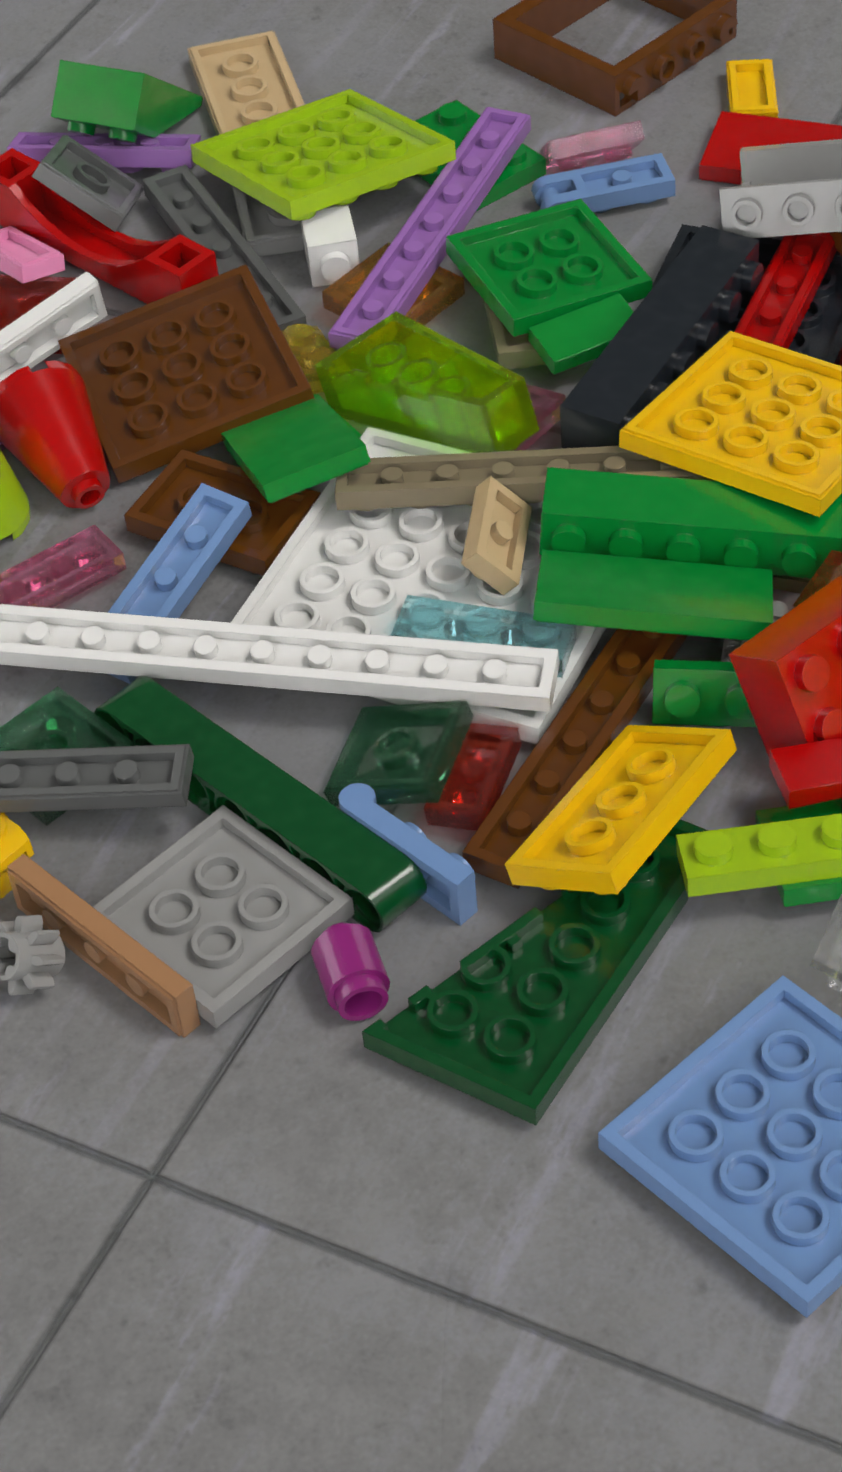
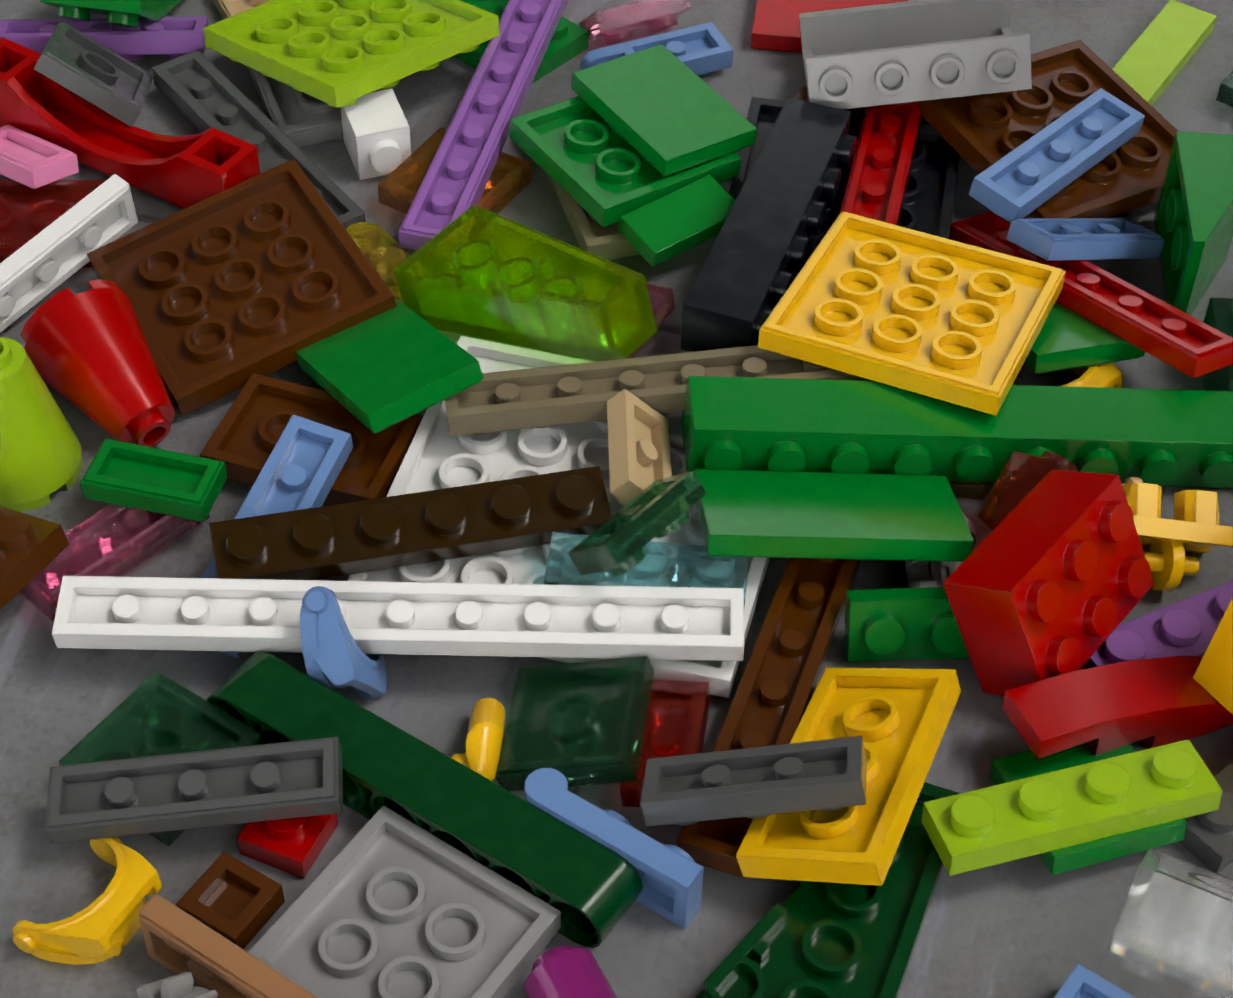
camera: 15 degrees left, 0 degrees up
(81, 533) = (154, 480): none -> green tile
(89, 868) = (233, 899): none -> reddish brown plate
(145, 829) = (287, 843): none -> red plate
(200, 681) = (331, 651): none -> medium blue helmet
(291, 583) = (410, 527): none -> dark brown plate
(319, 760) = (484, 738): none -> yellow arm
(456, 603) = (651, 514): none -> clear green plate
(530, 805) = (754, 782): none -> dark grey plate
(588, 232) = (663, 109): none -> green tile

